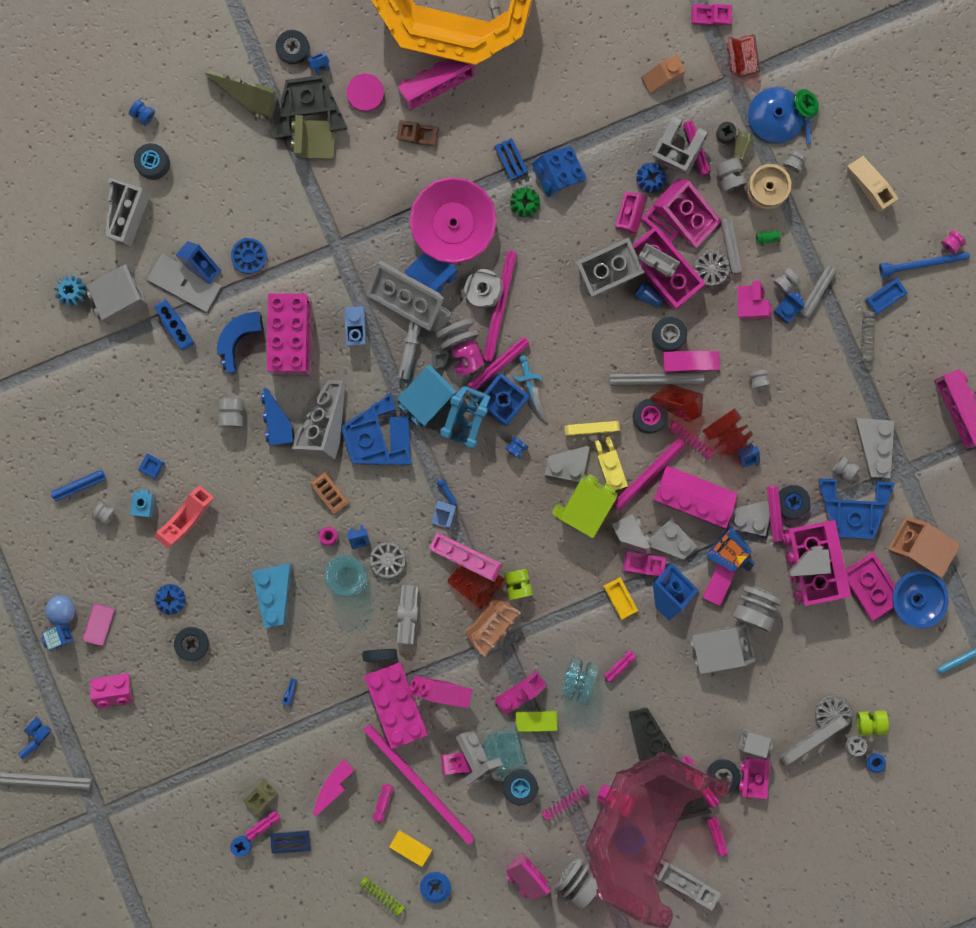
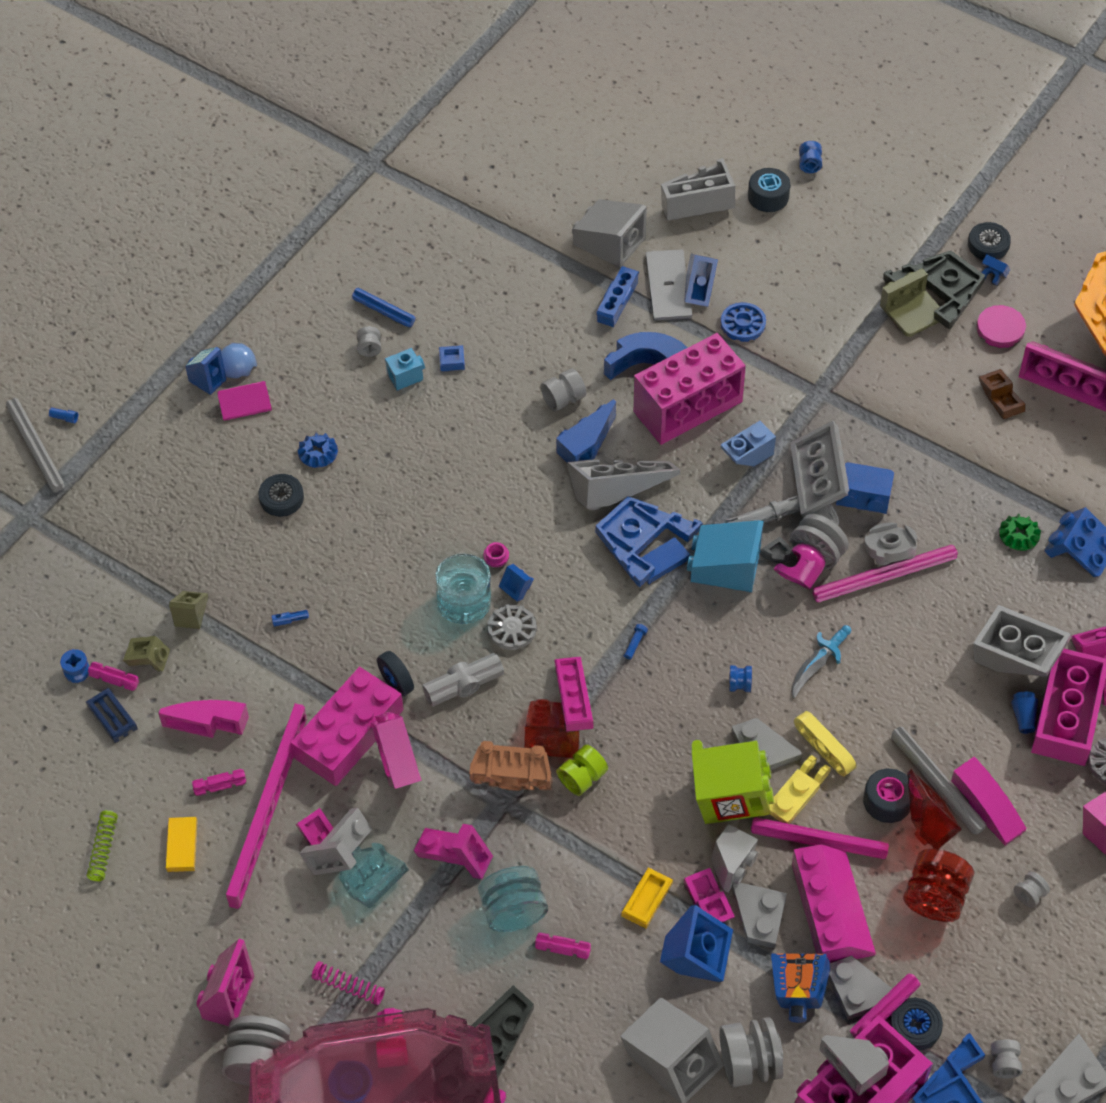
camera: 55 degrees right, 30 degrees down
(37, 730) = (89, 408): blue wheel -> none
(66, 297) = (581, 194): dark azure gear -> none
(111, 690) = (177, 450): dark pink bracket -> none
(185, 518) = (417, 414): coral arch -> none
(241, 750) = (188, 609): none -> olive slope
(254, 97) = (909, 228): olive wedge -> none
(272, 592) = (391, 534): dark azure wedge -> none
(321, 478) = (551, 513): nougat slope -> none
(425, 887) = (142, 889): blue gear -> none
(443, 514) = (607, 653): medium blue panel -> none
(449, 201) = (944, 451): dark pink dish -> none
(456, 417) = (735, 597): dark azure piece -> none
(499, 364) = (819, 609): dark pink axle -> none
(505, 144) = (1054, 475): blue tile -> none
(515, 397) = (788, 646): blue brick -> none
(520, 787) = (339, 908): black wheel -> none
(537, 721) = (430, 890): lime slope -> none
(658, 260) = (1072, 679): light grey hinge -> none
(669, 334) = (1002, 757): black wheel -> none
(709, 452) = (892, 834): dark pink piece -> none
(718, 584) = (747, 999): dark pink tile -> none
(749, 456) = (930, 935): blue tile -> none

